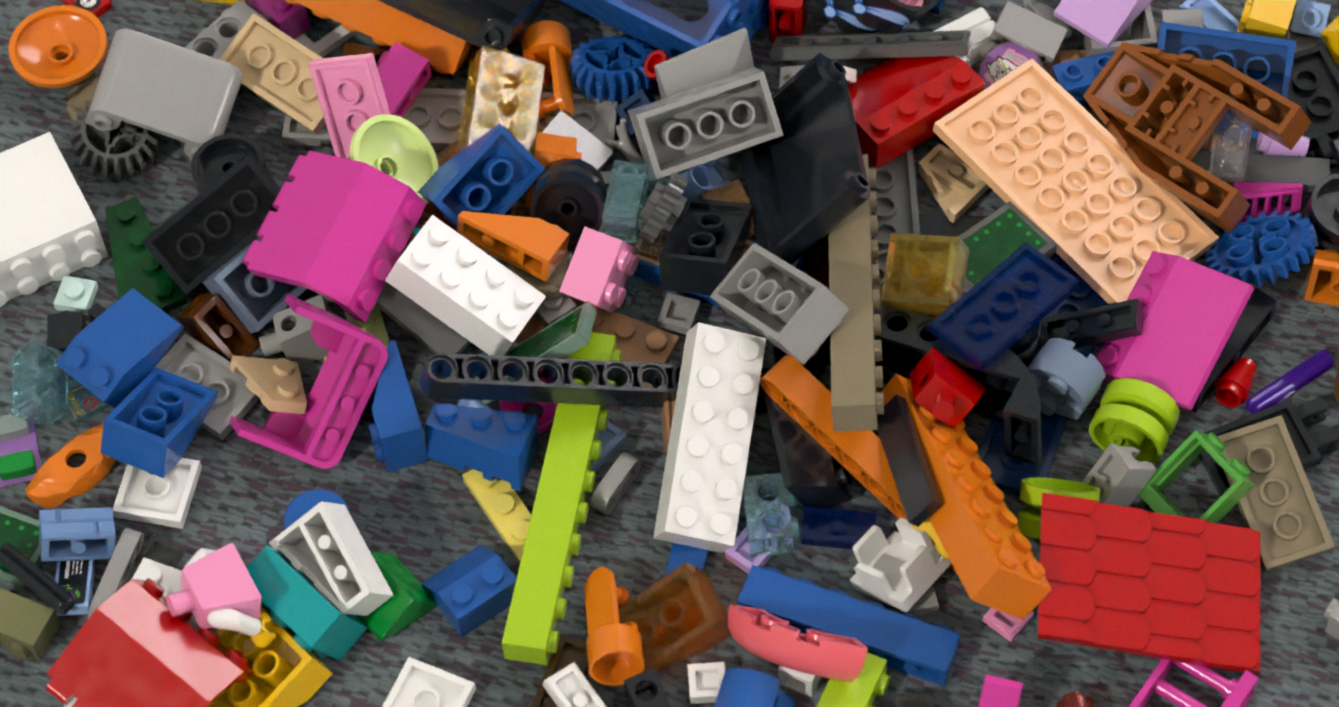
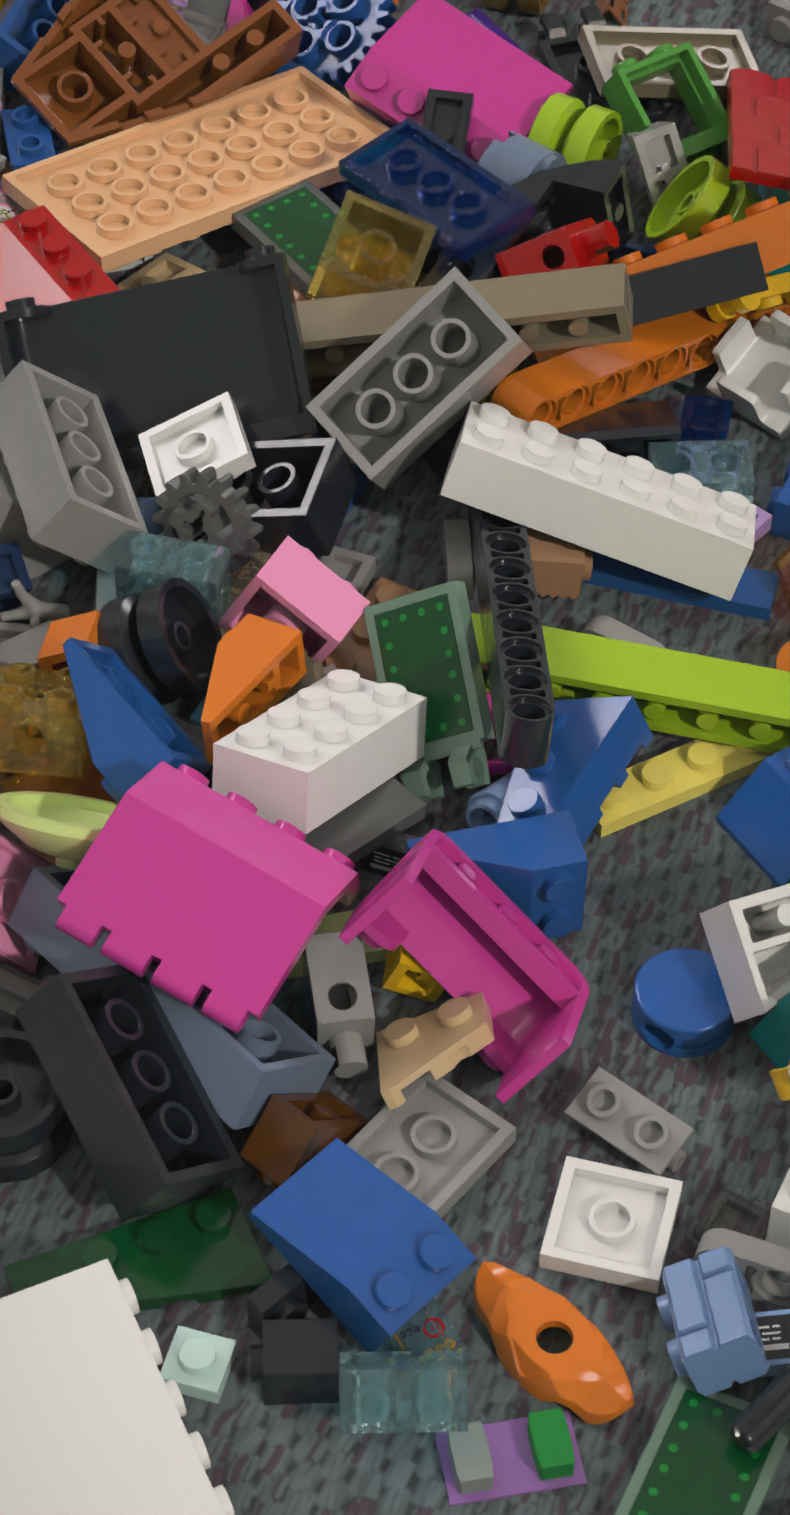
camera: 90 degrees left, 10 degrees down
(156, 422) = (514, 1193): blue slope -> none
(225, 487) = (630, 1122): none -> light grey hinge
(731, 195) = (198, 439): none -> white plate

